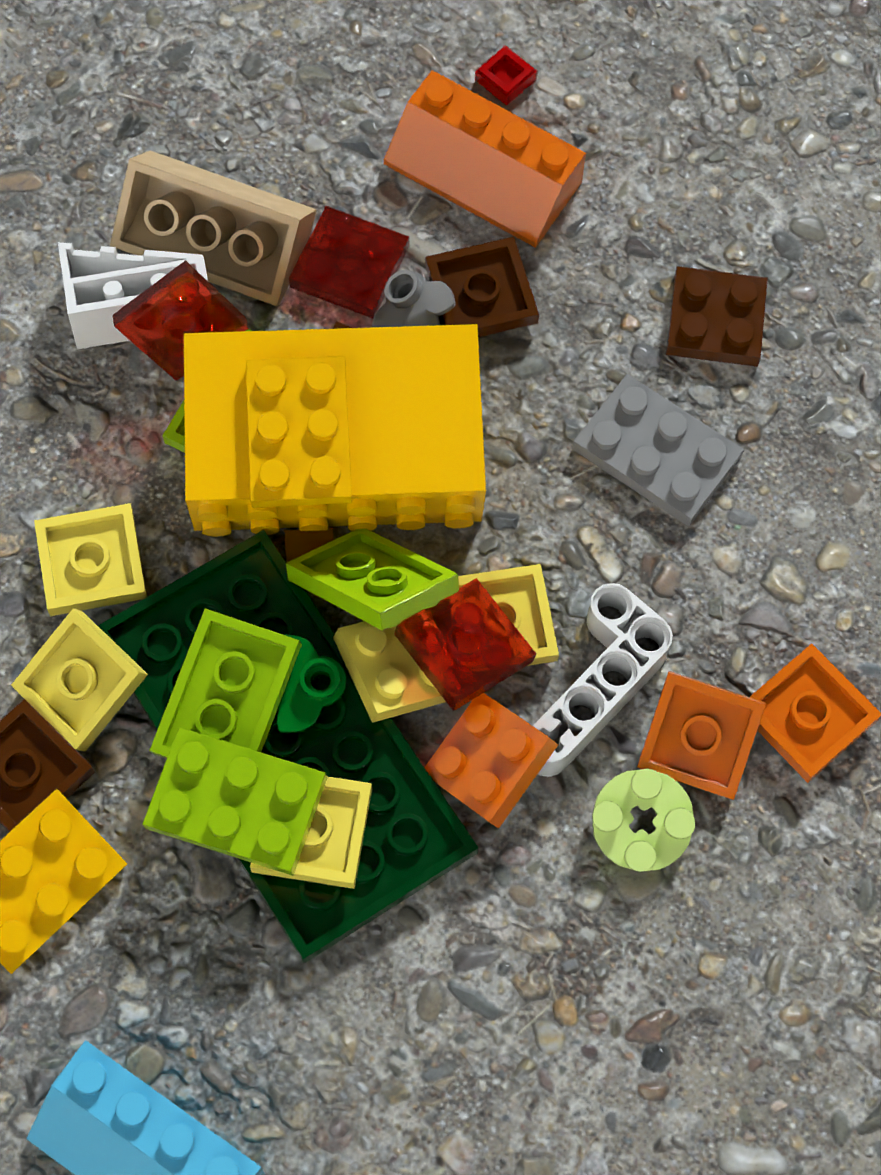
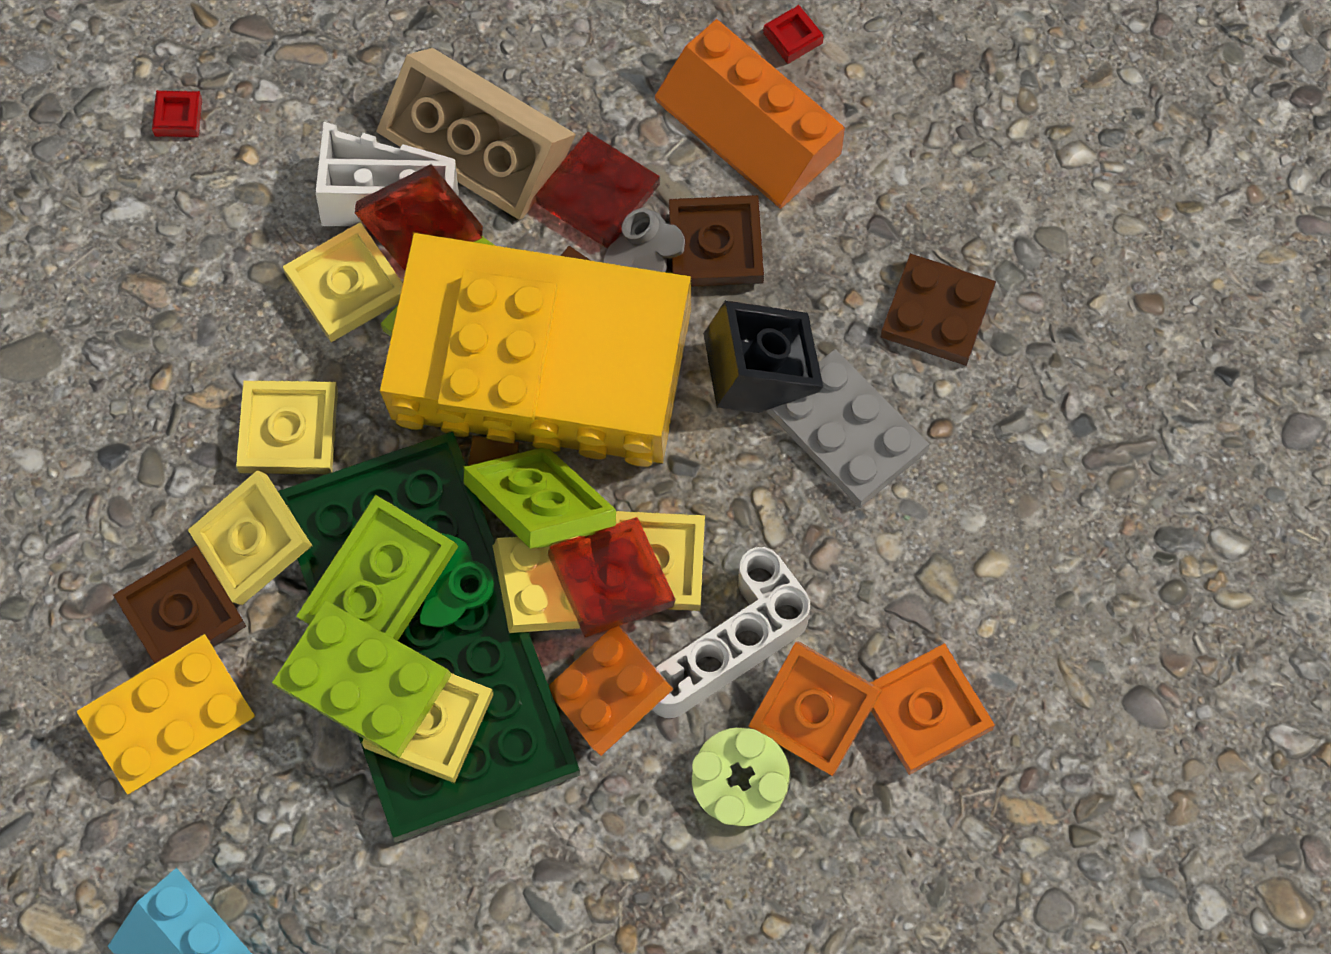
camera: 15 degrees right, 0 degrees up
(115, 401) = (345, 281): none -> light yellow plate
(557, 395) = (760, 357): none -> black slope

